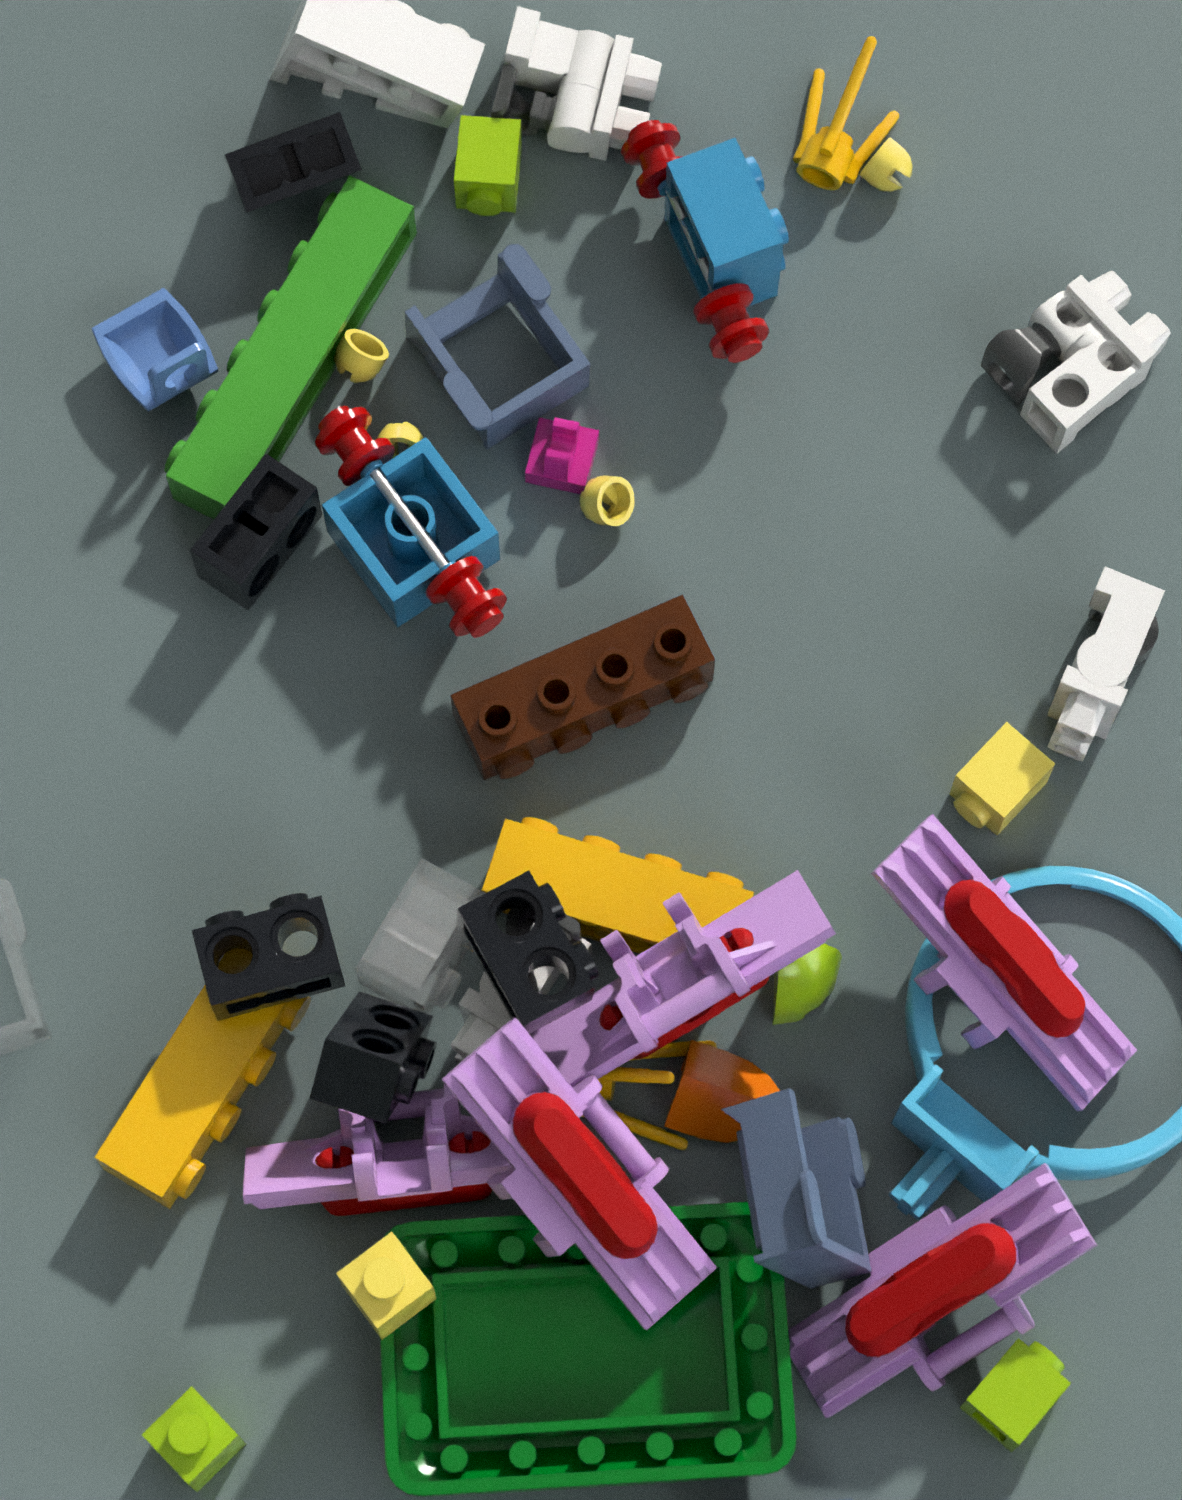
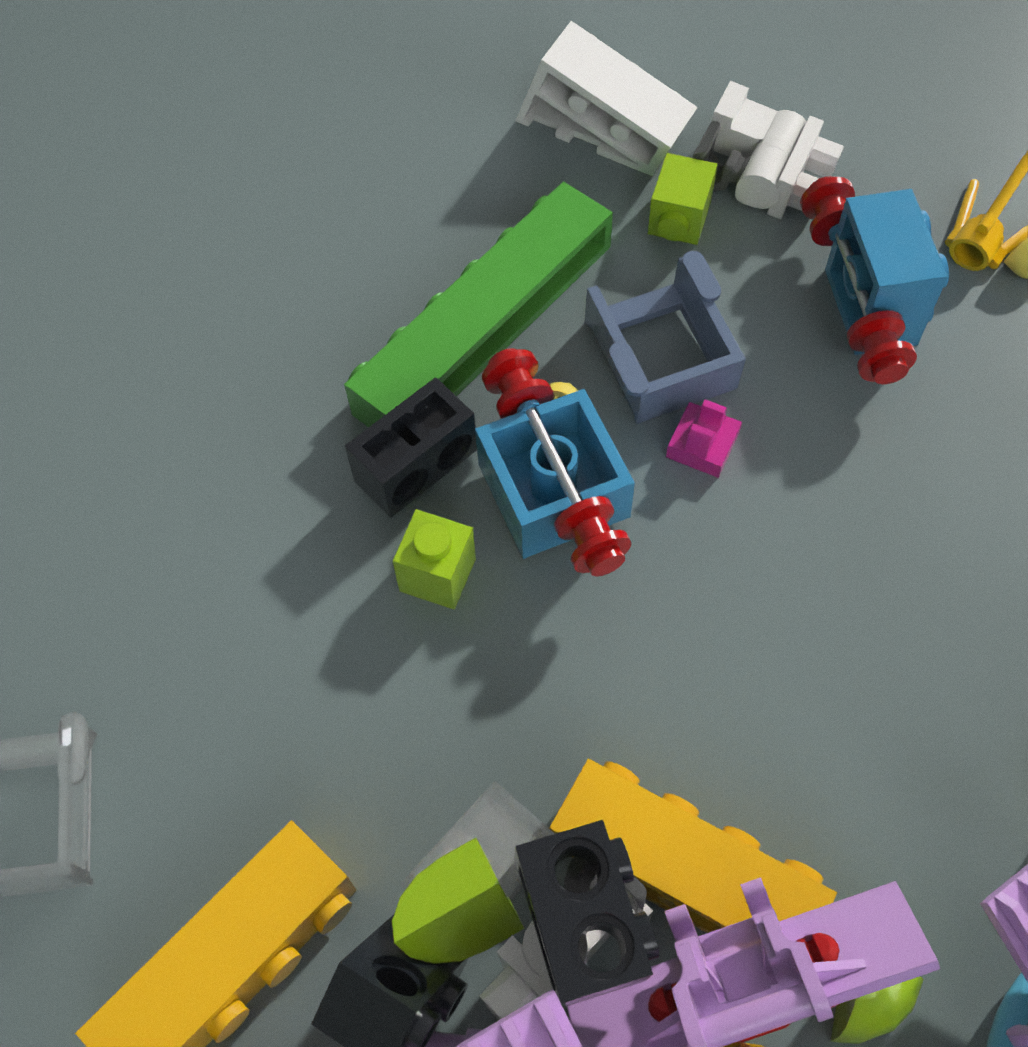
camera: 15 degrees right, 10 degrees down
(155, 349) = (367, 290): medium blue piece -> none
(272, 974) = (308, 871): black brick -> none
(292, 162) = (517, 165): black brick -> none
(309, 649) = (434, 559): none -> lime brick
(360, 355) = (540, 325): light yellow hinge -> none
(412, 977) = (454, 909): none -> lime brick
(583, 689) = (690, 647): reddish brown brick -> none
(612, 491) = (745, 476): light yellow hinge -> none

